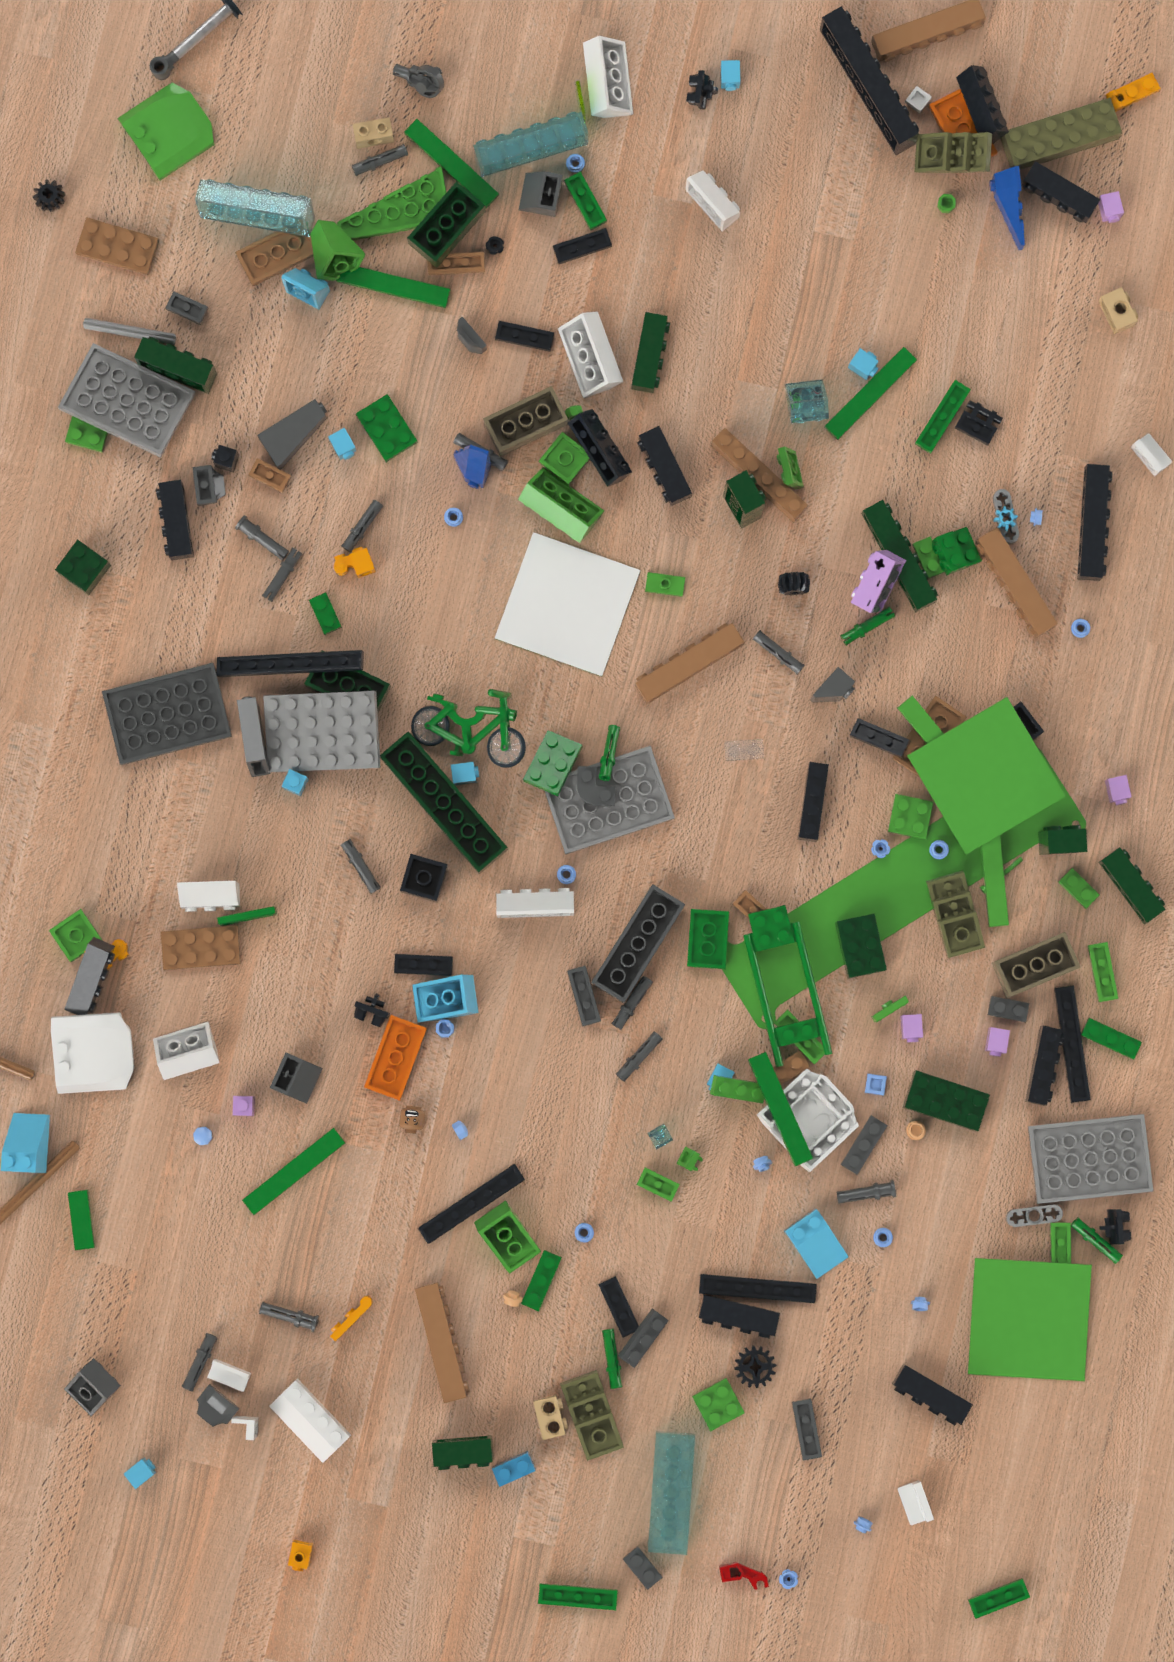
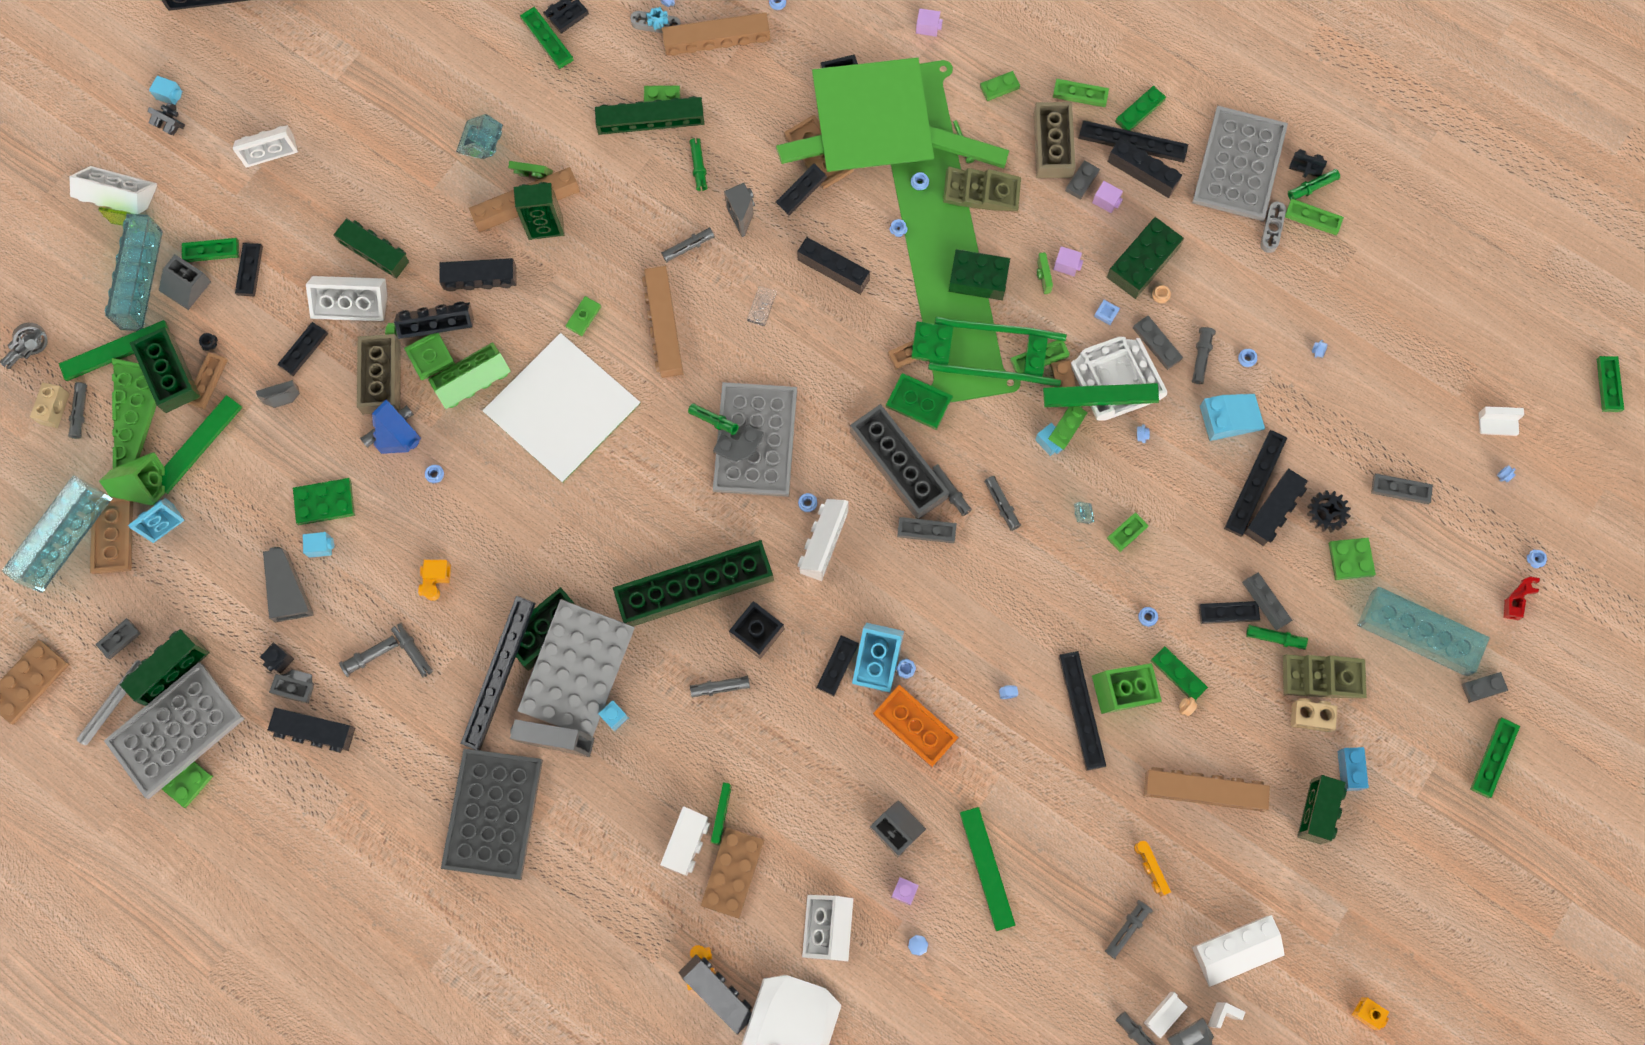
camera: 65 degrees left, 10 degrees down
(74, 934) = (667, 994): bright green plate -> none
(83, 567) = (312, 838): dark green brick -> none
(269, 475) = (313, 624): medium nougat plate -> none
(325, 613) = (467, 625): green plate -> none
(362, 525) = (400, 555): dark grey pin -> none
(362, 1009) = (868, 724): black hips -> none
(412, 1119) = (980, 733): medium nougat head -> none
(464, 773) = (674, 555): medium azure brick -> none
(505, 745) = (666, 506): piece -> none
(552, 763) = (700, 473): green plate -> none
(575, 157) = (171, 241): light blue plate -> none
(688, 1159) = (1114, 495): bright green tile -> none
(794, 583) = (633, 206): black gear -> none
(864, 364) = (470, 81): medium azure brick -> none
(870, 393) = (498, 87): green tile -> none
(877, 581) = (663, 134): lavender piece -> none
(910, 816) = (880, 194): bright green plate -> none
(931, 1394) = (1405, 369): black brick -> none
(956, 551) = (666, 70): green plate -> none
(1029, 1319) = (1365, 264): bright green piece -> none
(1058, 841) = (955, 73): dark green brick -> none
(1132, 885) = (1015, 42): dark green brick -> none

